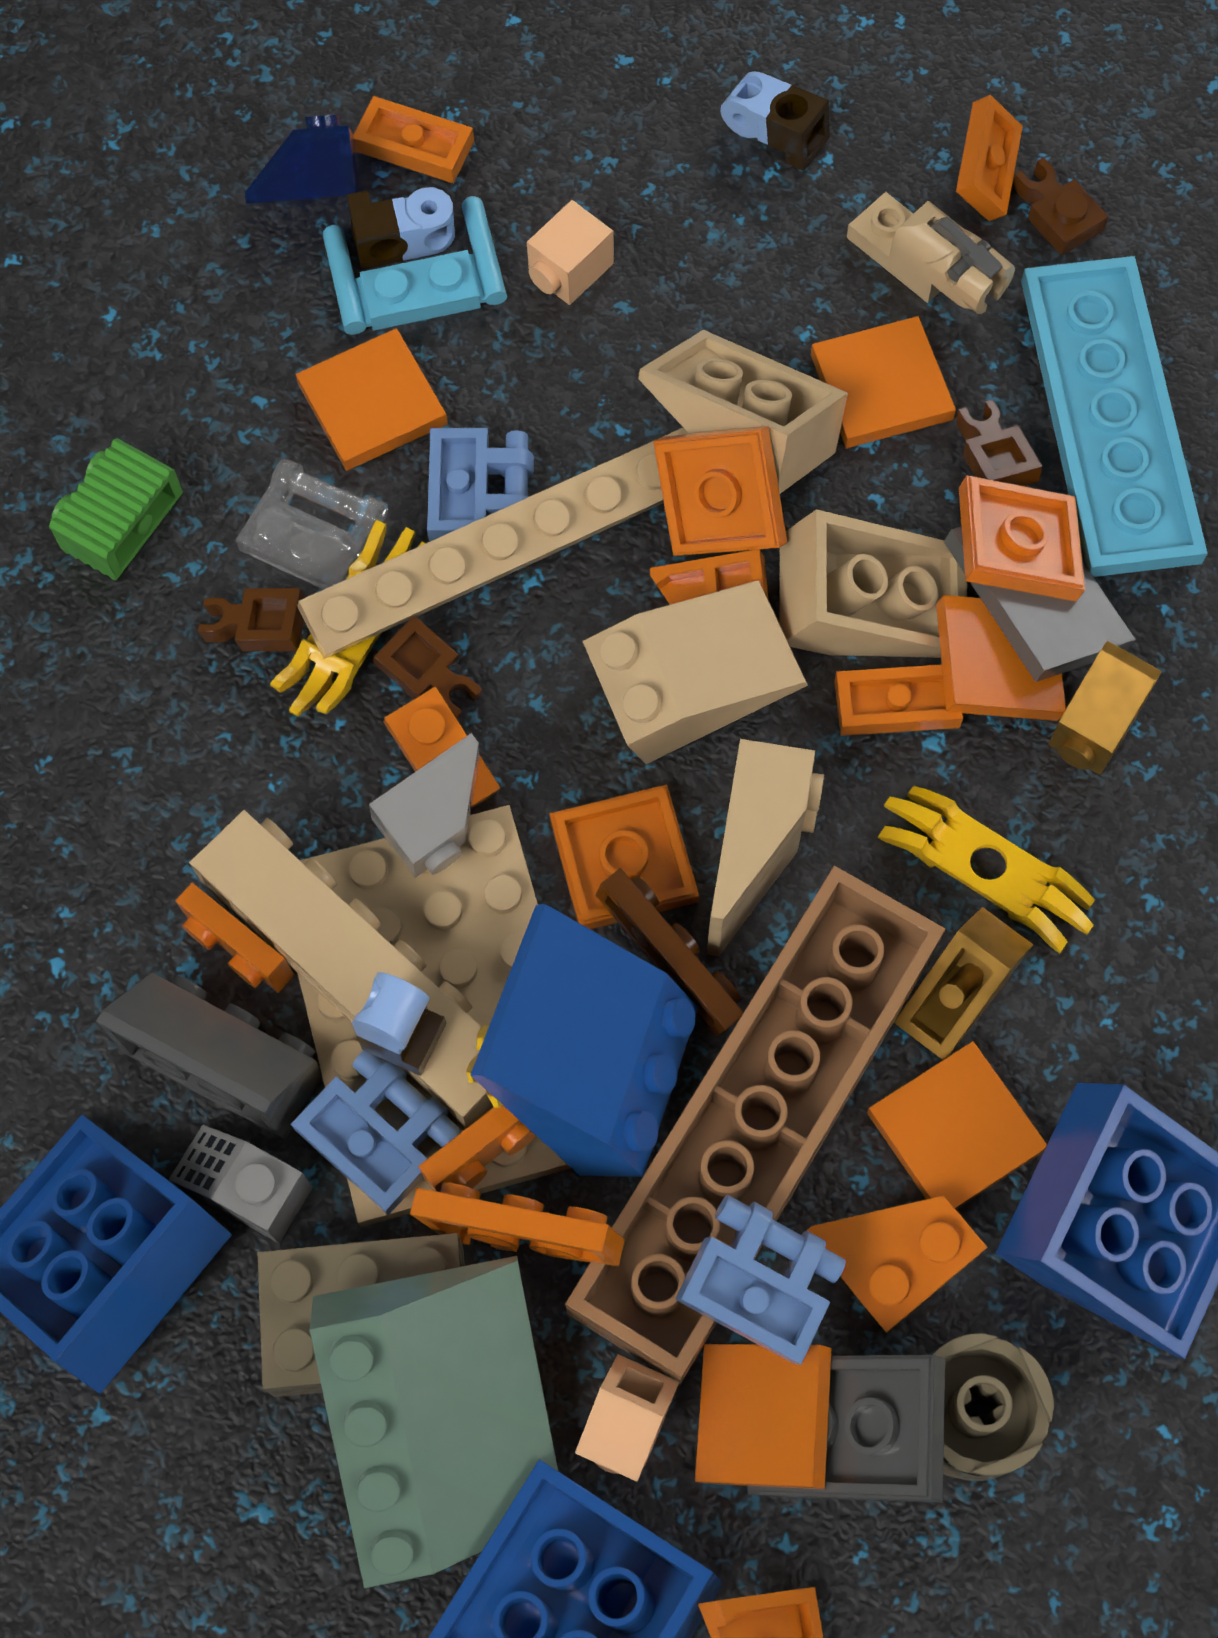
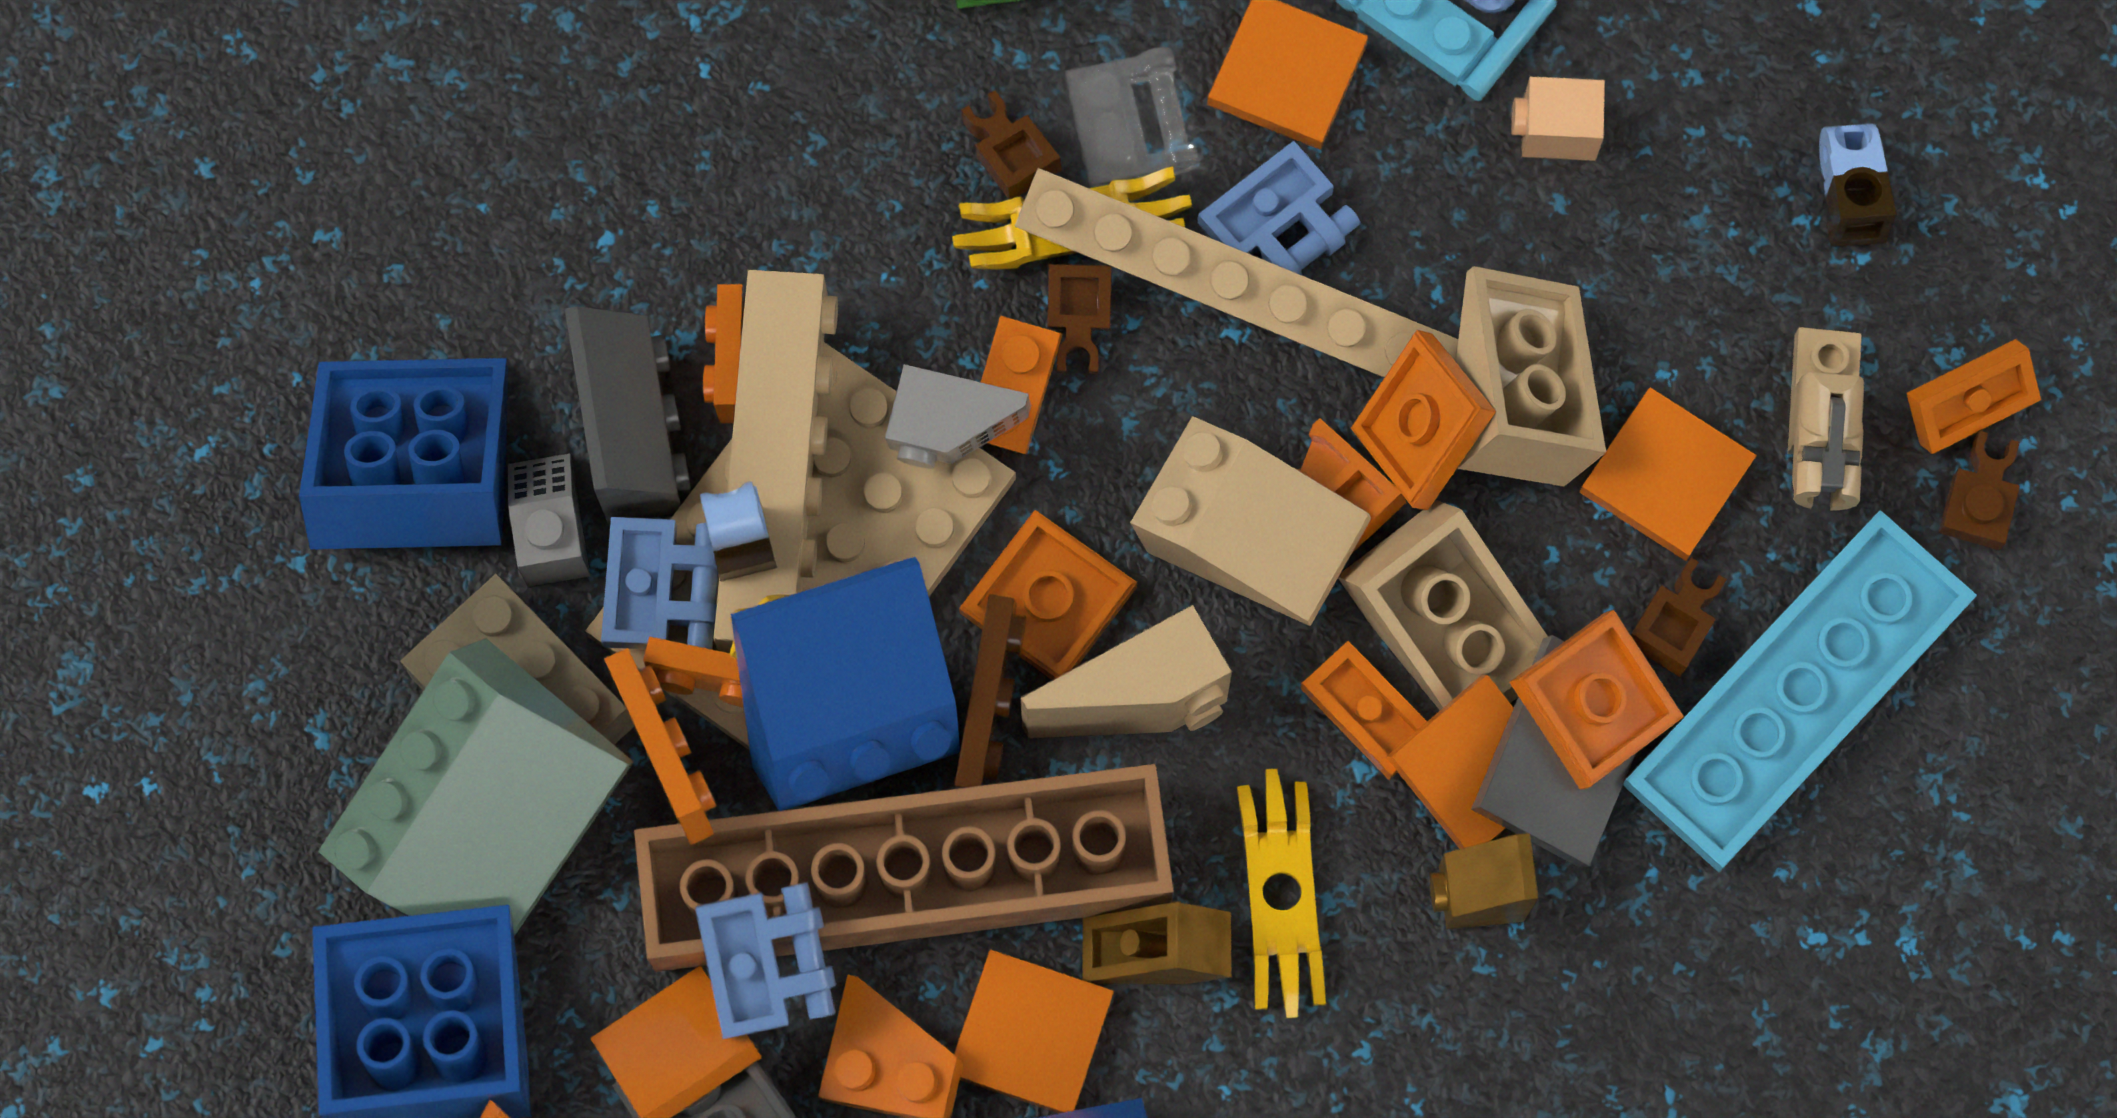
camera: 50 degrees right, 5 degrees up
(626, 1418) = (593, 946): light nougat brick -> none

